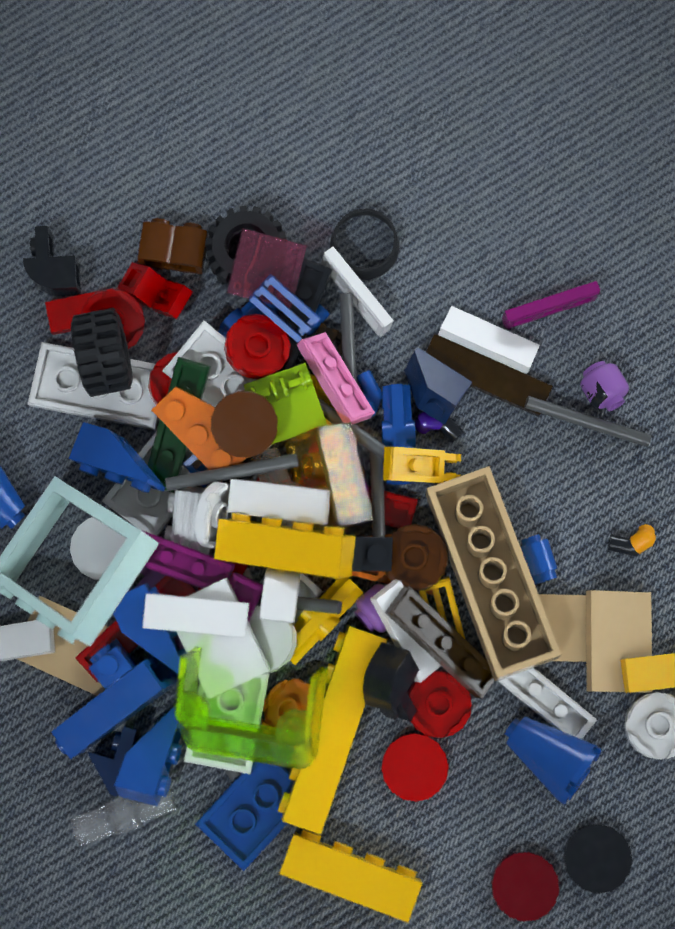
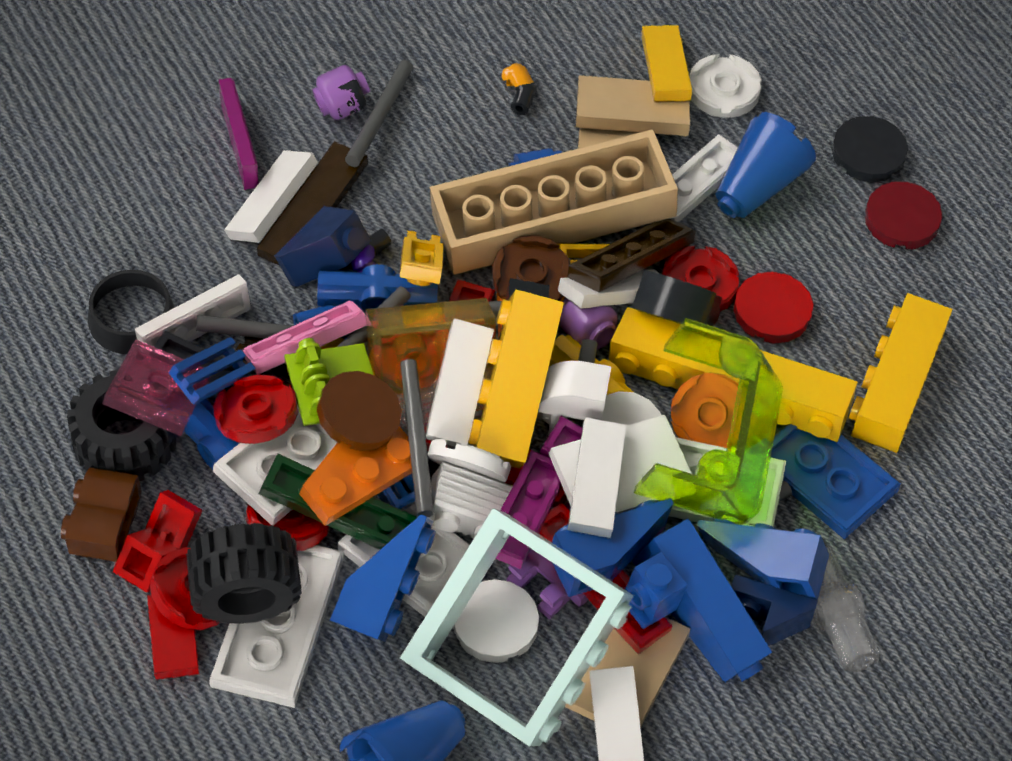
camera: 90 degrees left, 25 degrees down
(52, 274) = (111, 667): black brick -> none

